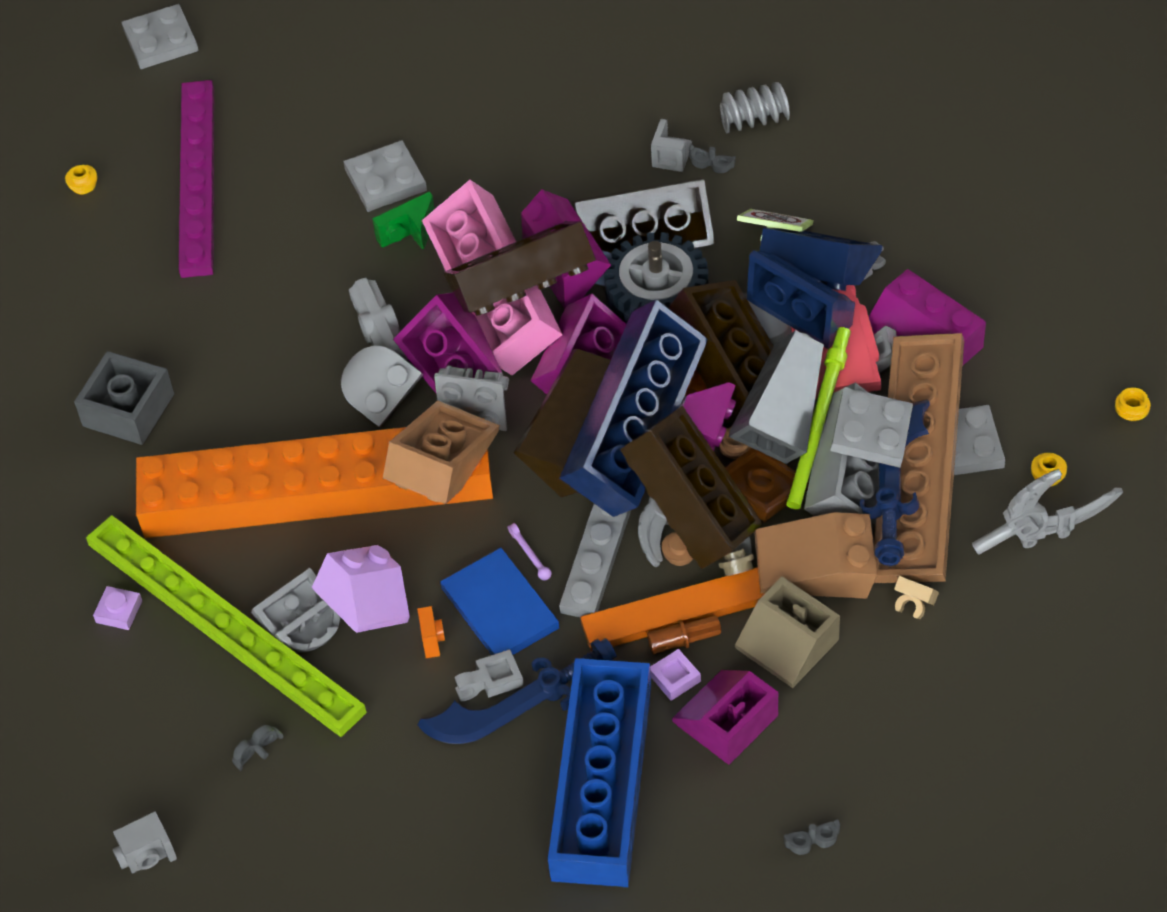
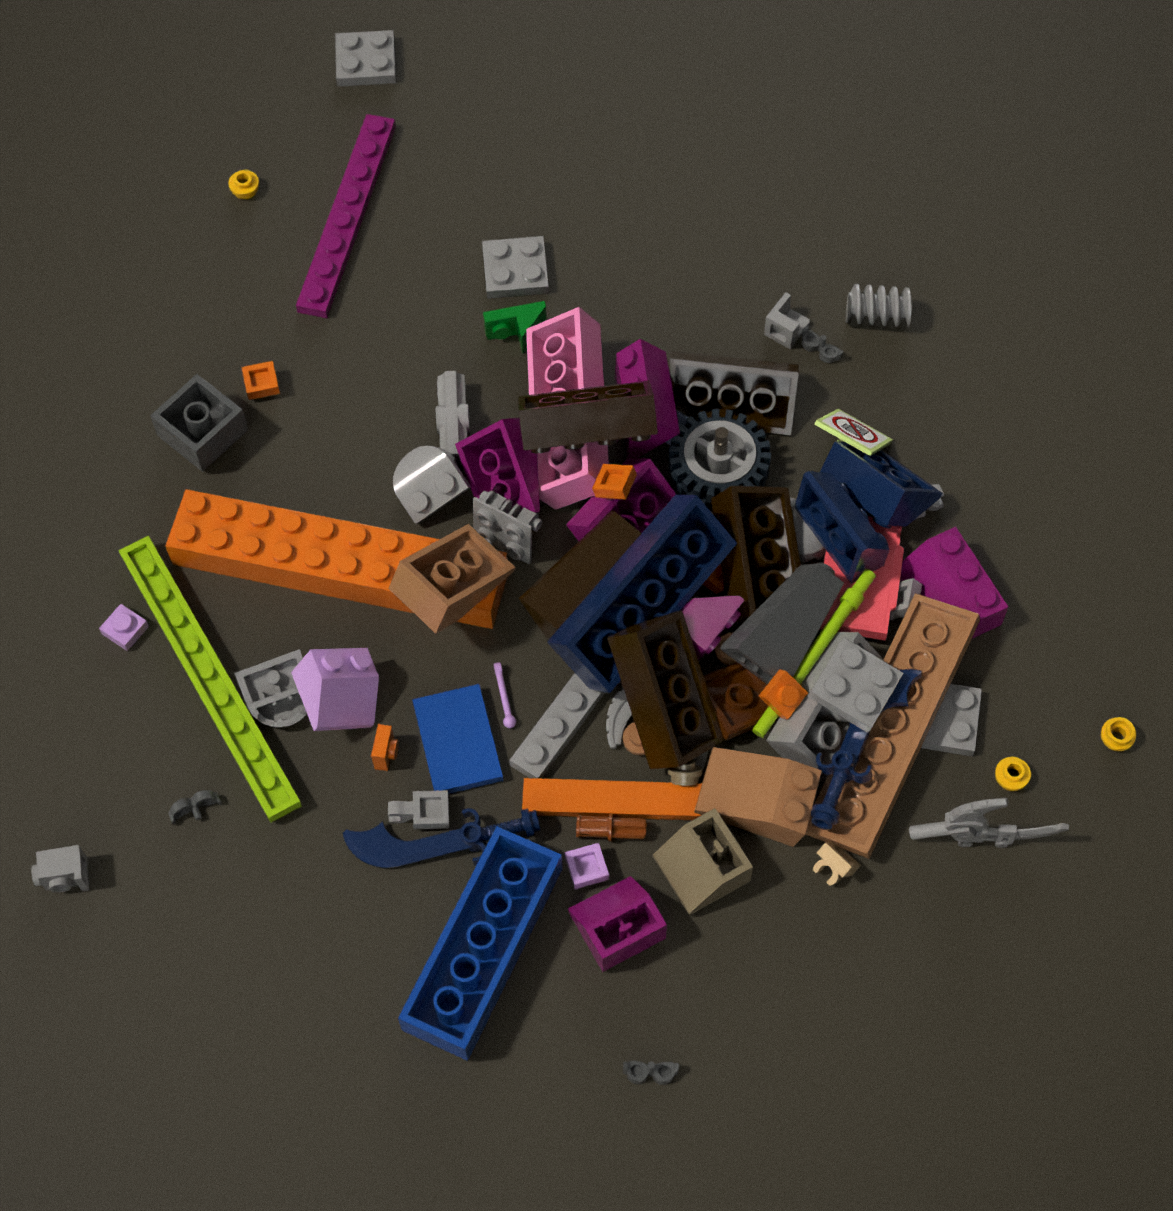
camera: 15 degrees right, 10 degrees up
(170, 345) = (260, 380): none -> orange plate
(566, 320) = (614, 481): none -> orange plate
(805, 459) = (783, 694): none -> orange plate

